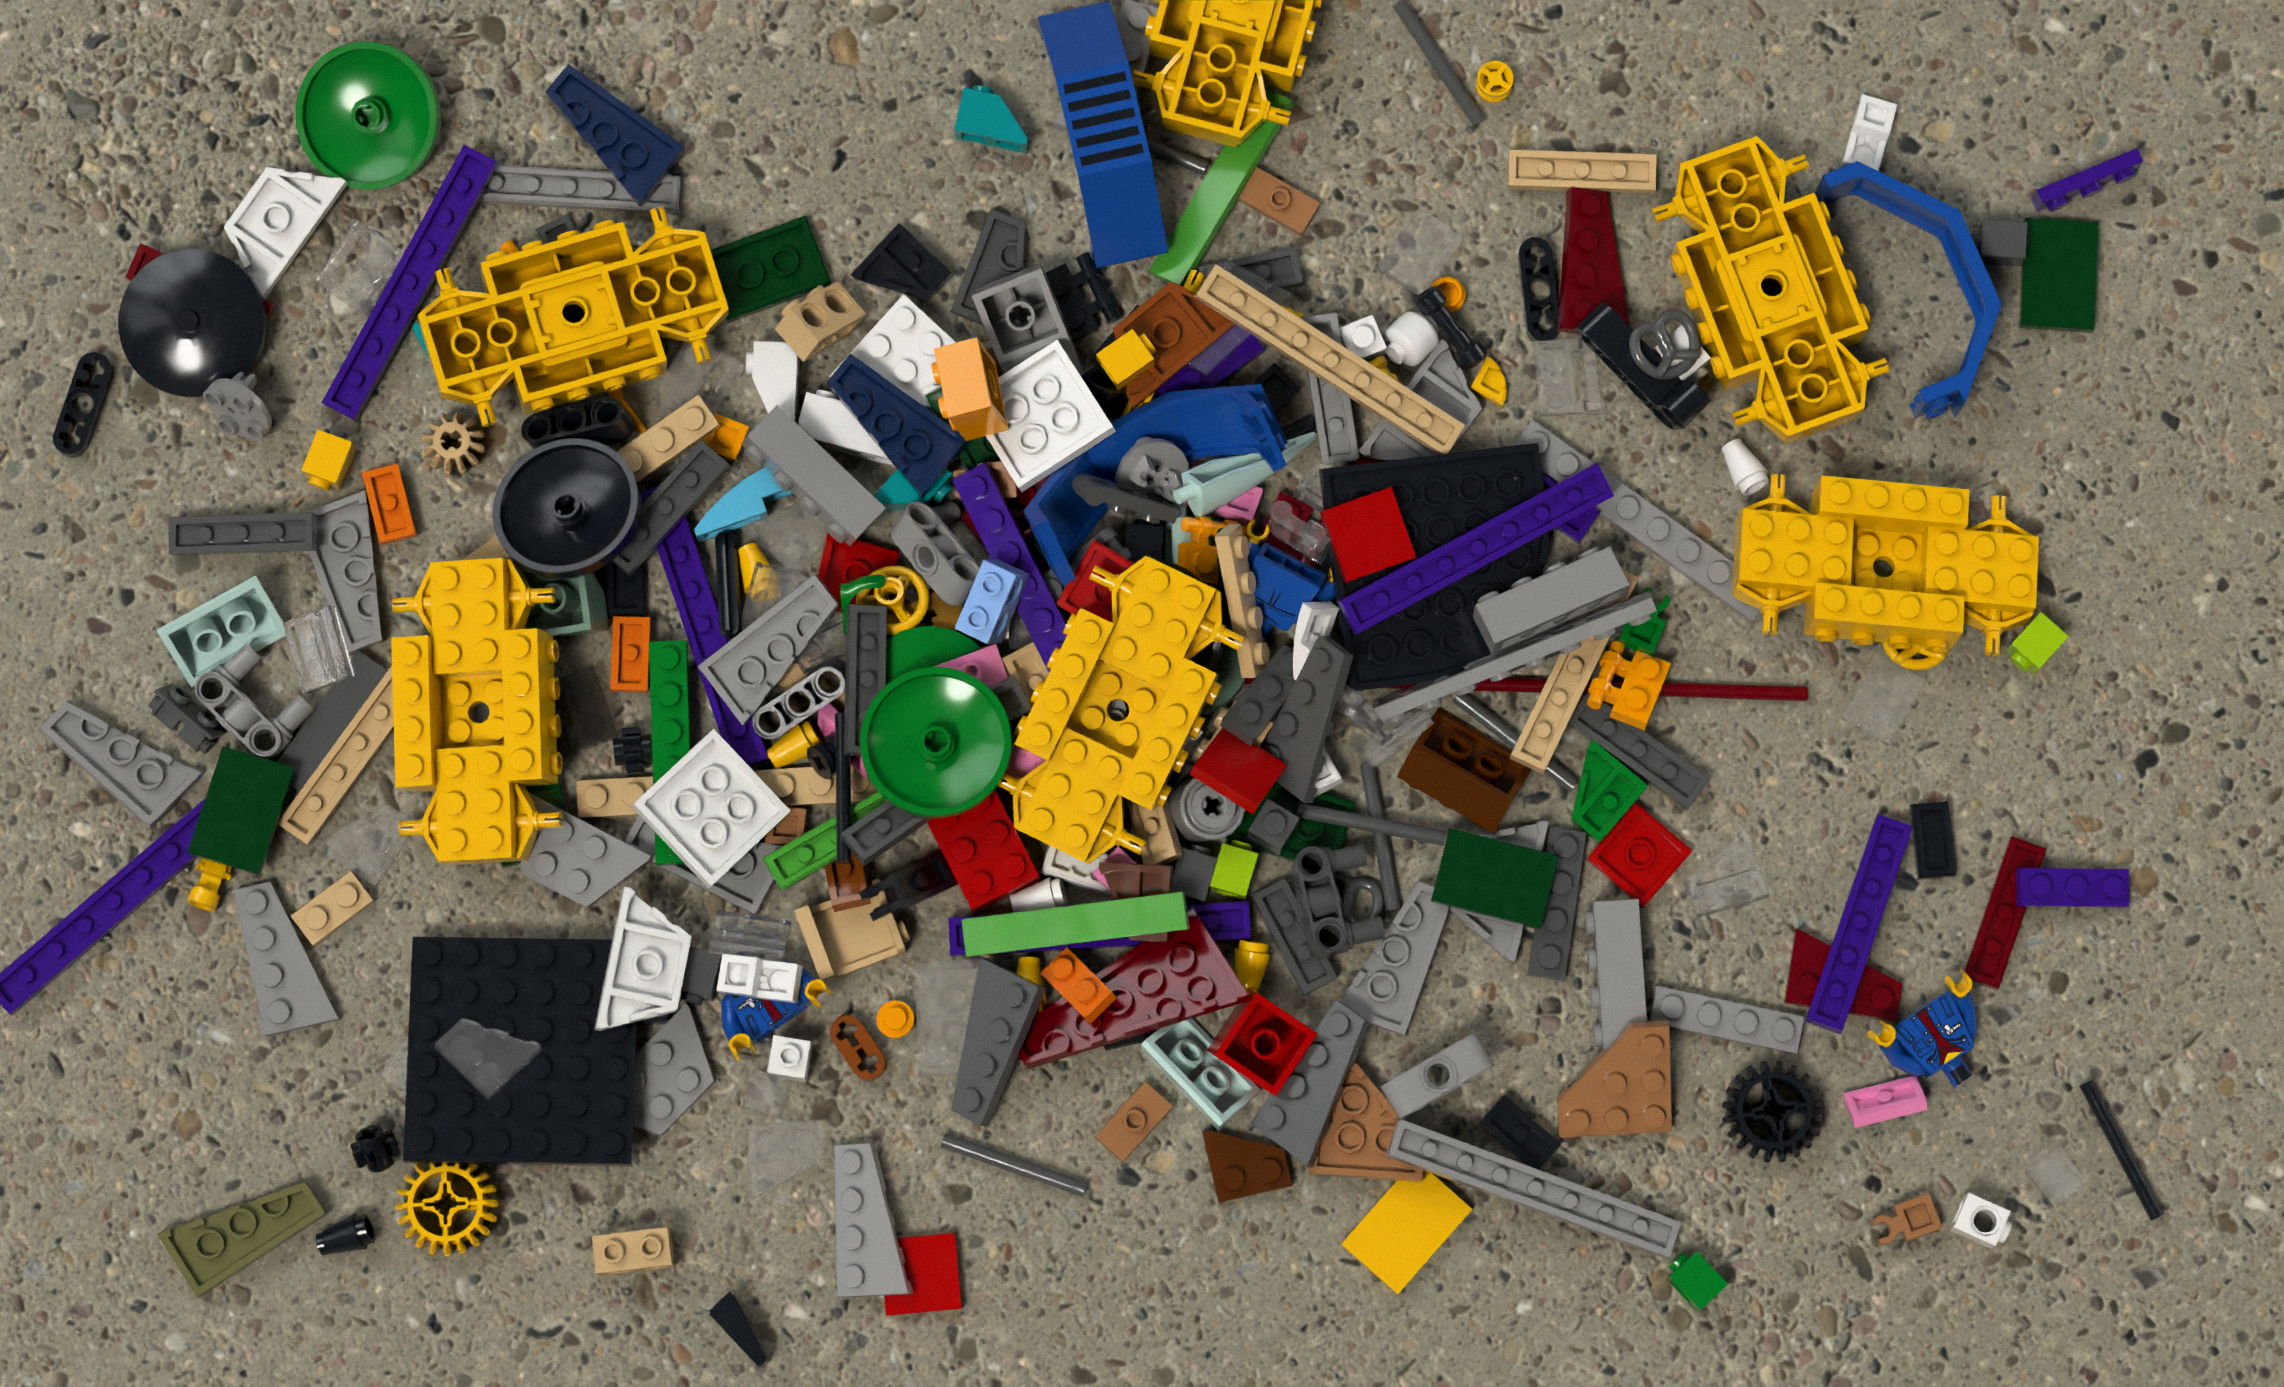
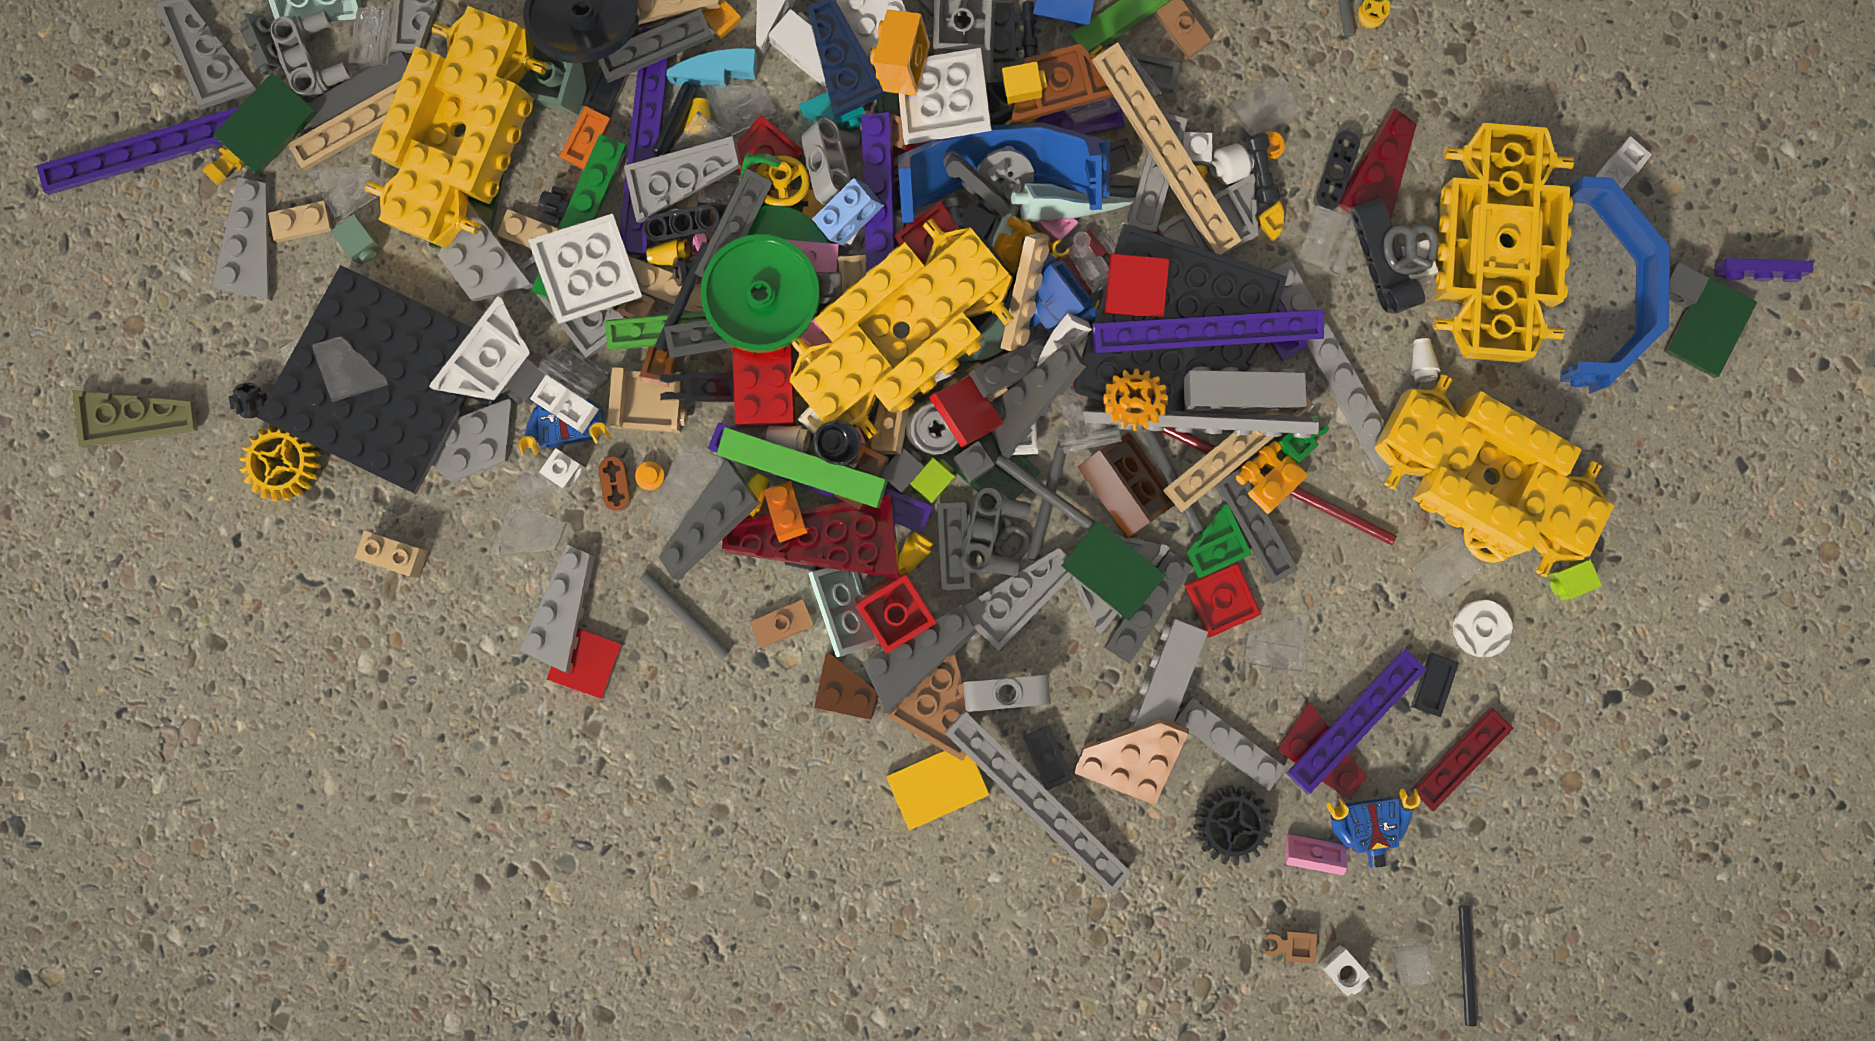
camera: 25 degrees right, 5 degrees up
(347, 1235) = (205, 452): black cone -> none
(414, 899) = (356, 240): none -> sand green brick
(588, 710) = (538, 163): clear smoke plate -> none
(735, 1324) = (438, 635): black slope -> none
(812, 476) = (765, 68): light grey brick -> none
(1106, 874) = (837, 442): none -> black hair
(1428, 667) = (1135, 399): none -> light orange gear
(1583, 170) = (1410, 101): tan plate -> none
(1695, 1280) = (1123, 918): green brick -> none
(1947, 753) = (1480, 636): none -> white tile
(2072, 887) = (1519, 764): dark purple plate -> none

